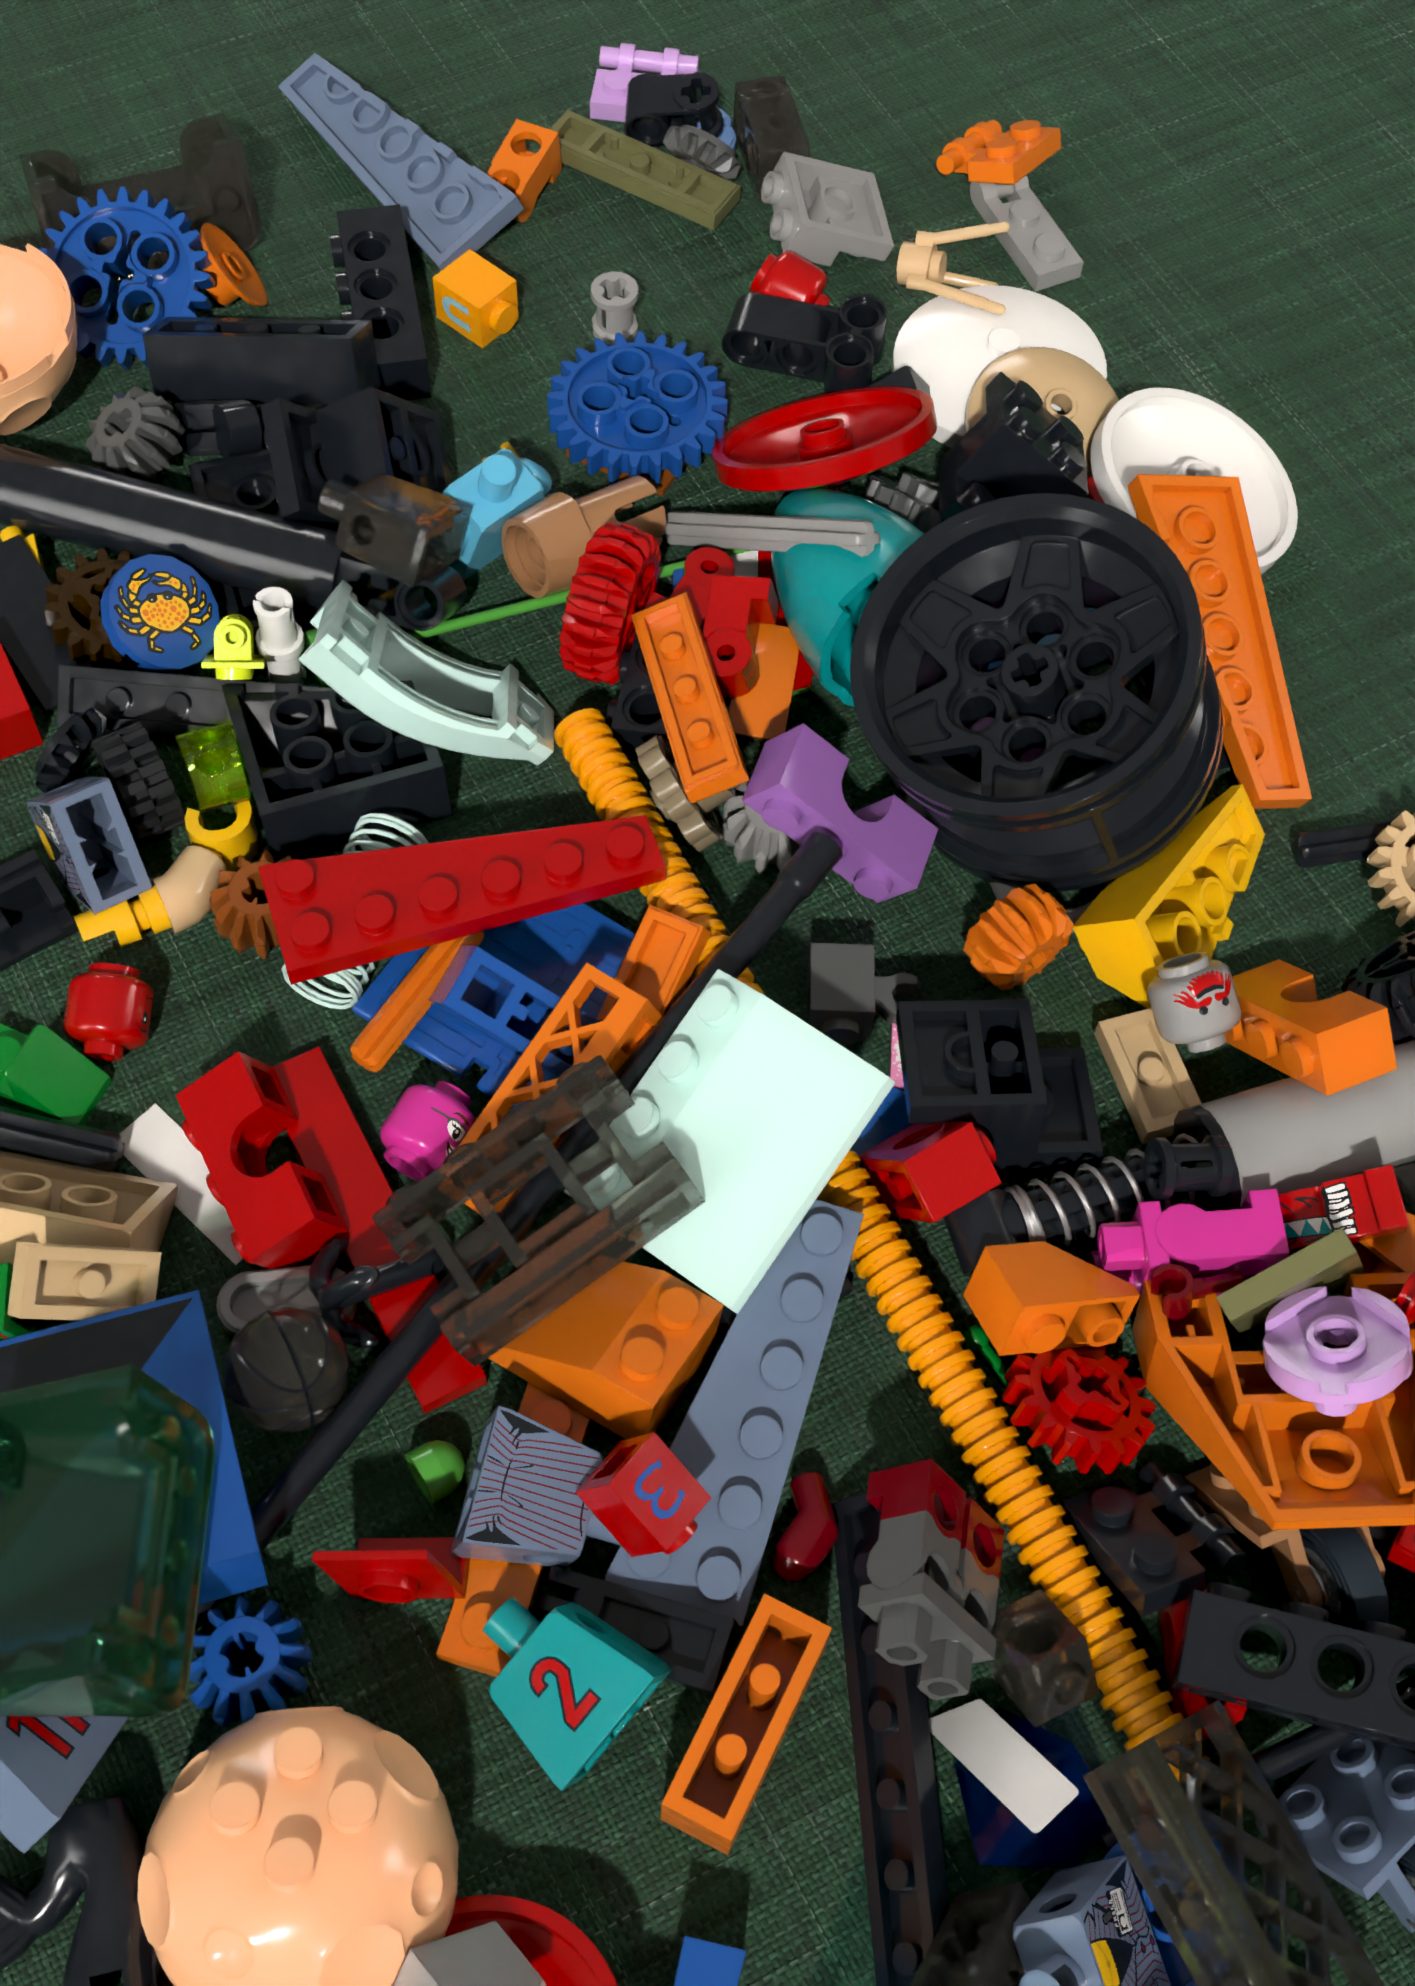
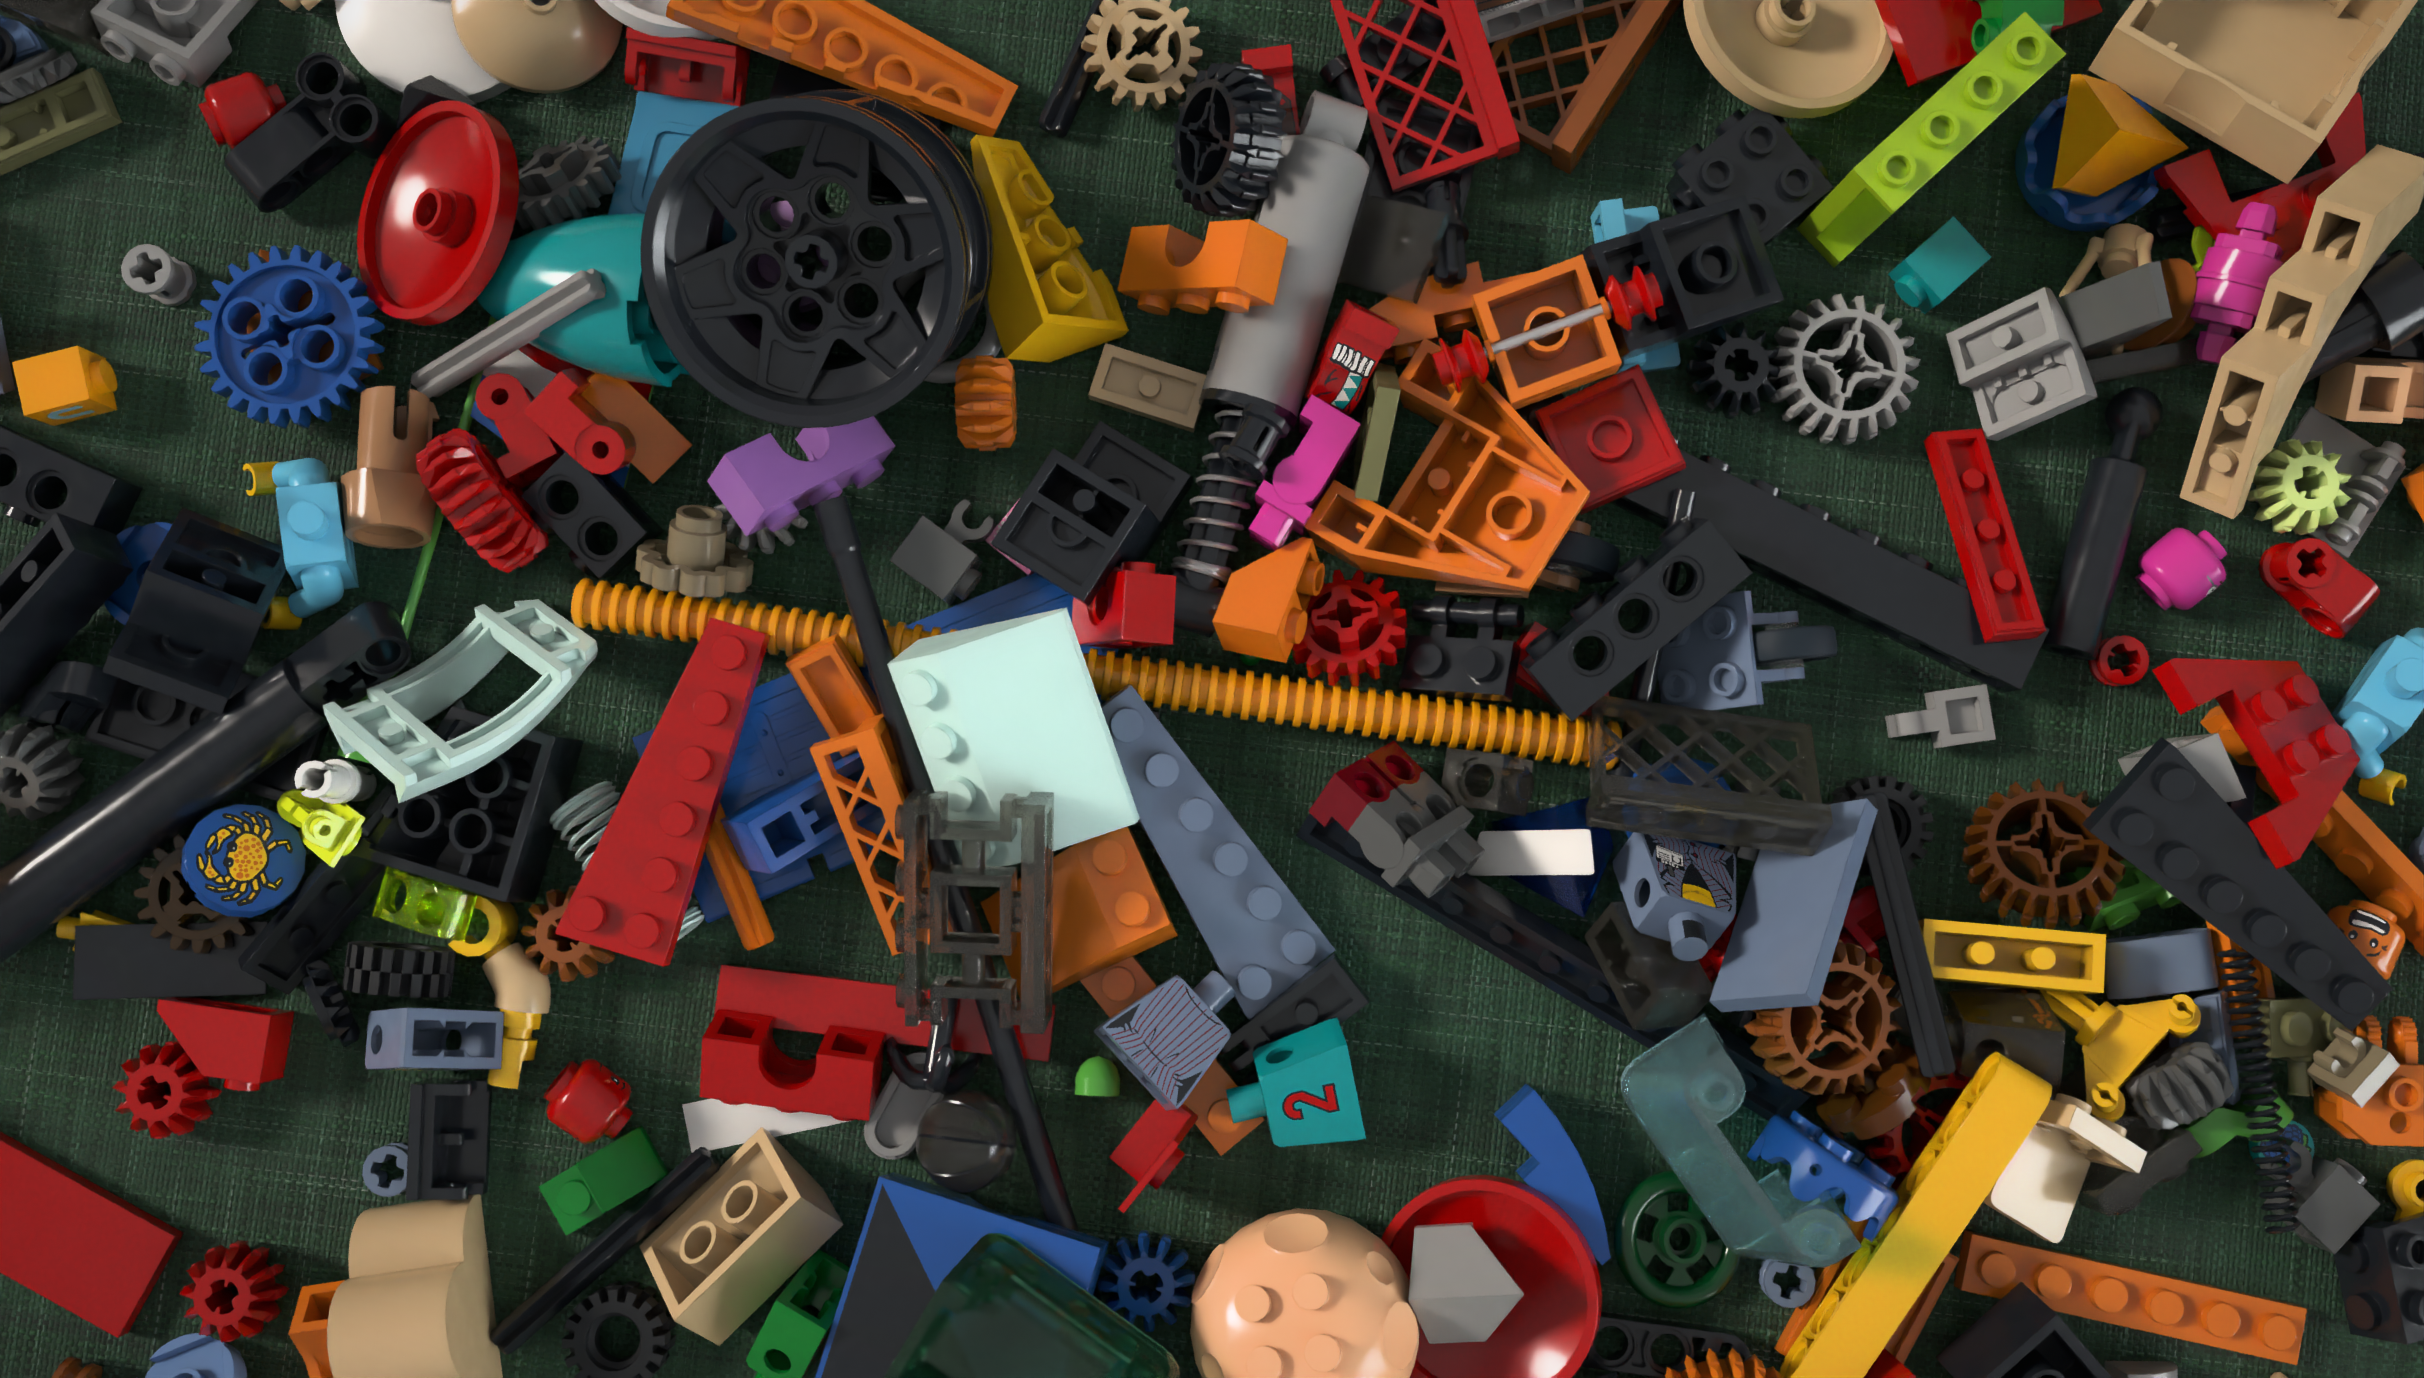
camera: 50 degrees left, 25 degrees up
(80, 1280) = (821, 1253): tan plate -> none
(397, 526) = (302, 632): clear smoke torso -> none
(425, 1128) = (846, 931): dark pink head -> none
(644, 1496) = (1225, 969): red brick -> none
(689, 698) = (624, 510): orange tile -> none
(745, 1724) = (1403, 996): orange brick -> none
(810, 1532) = (1306, 862): dark red arm -> none
(1012, 452) = (587, 95): black bracket -> none
(1179, 1280) = (1335, 502): dark red hand -> none
(1194, 1001) = (1128, 324): light grey head -> none
(1340, 1377) = (1470, 466): lavender plate -> none

